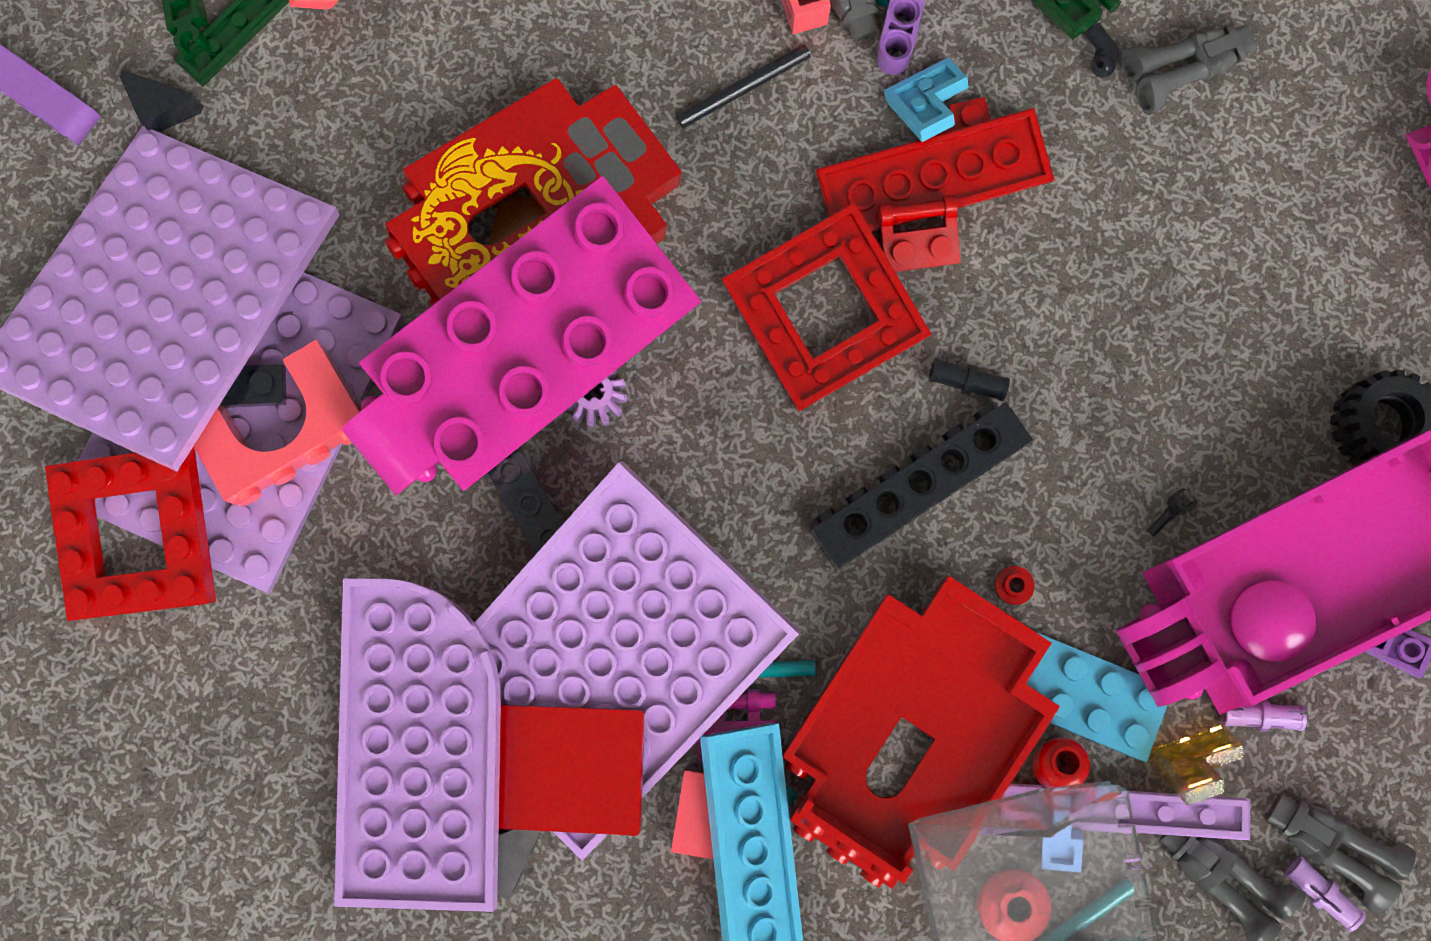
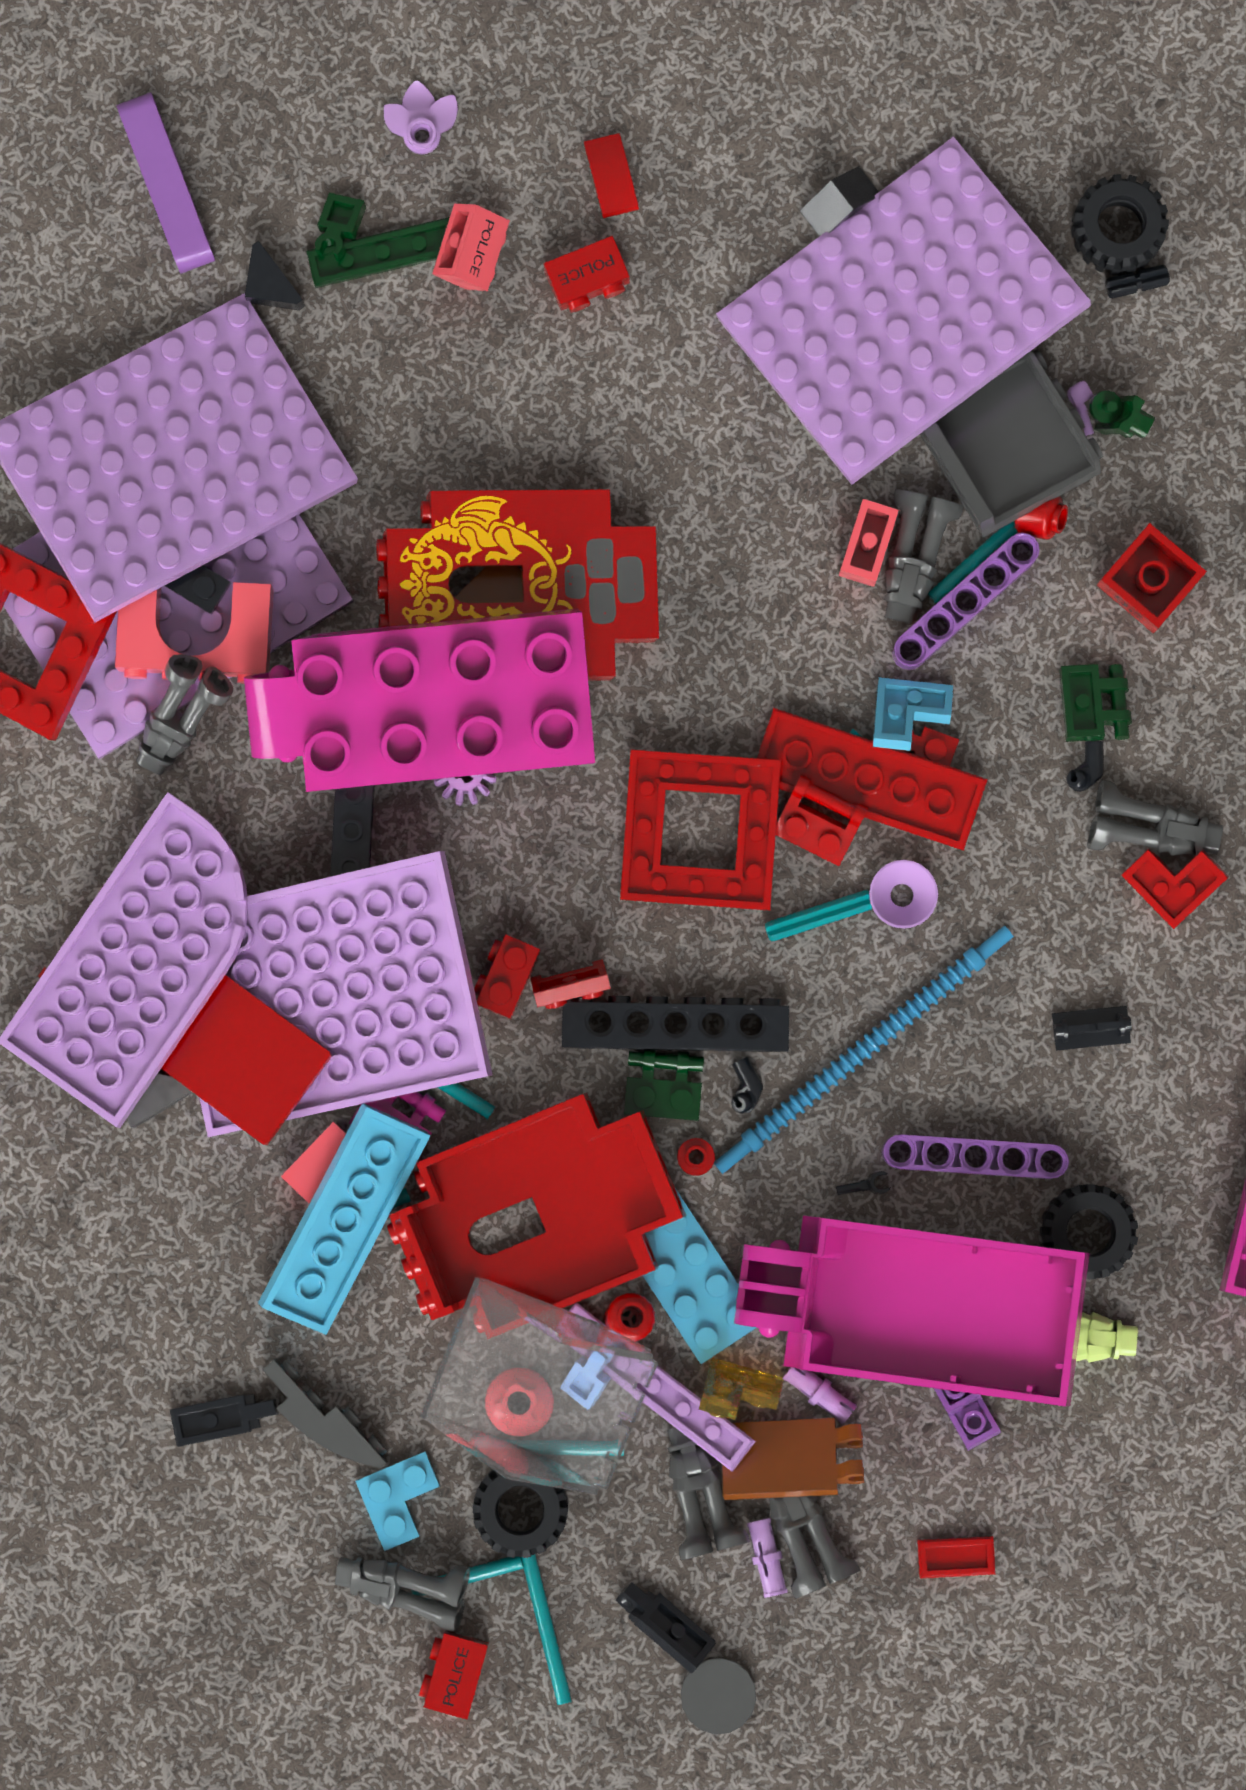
camera: 35 degrees right, 5 degrees up
(314, 526) = (170, 731): none -> dark grey piece
(743, 86) = (766, 593): black bar -> none
(749, 538) = (508, 976): none -> red brick
(801, 519) = (583, 982): none -> red plate
(949, 555) = (664, 1097): none -> dark green plate
(969, 379) = (777, 967): black pin -> none
(972, 314) = (818, 915): none -> teal axle
(1017, 497) = (749, 1087): none -> black arm
(1043, 235) = (923, 888): none -> lavender piece
(1051, 537) = (973, 960): none -> dark azure hose
(1250, 101) = (1173, 894): none -> red plate
(1260, 414) = (992, 1163): none -> medium lavender beam
(1261, 255) = (1091, 1028): none -> black hinge
(1273, 621) = (870, 1319): dark pink dish -> none
(1291, 791) = (794, 1460): none -> dark orange tile

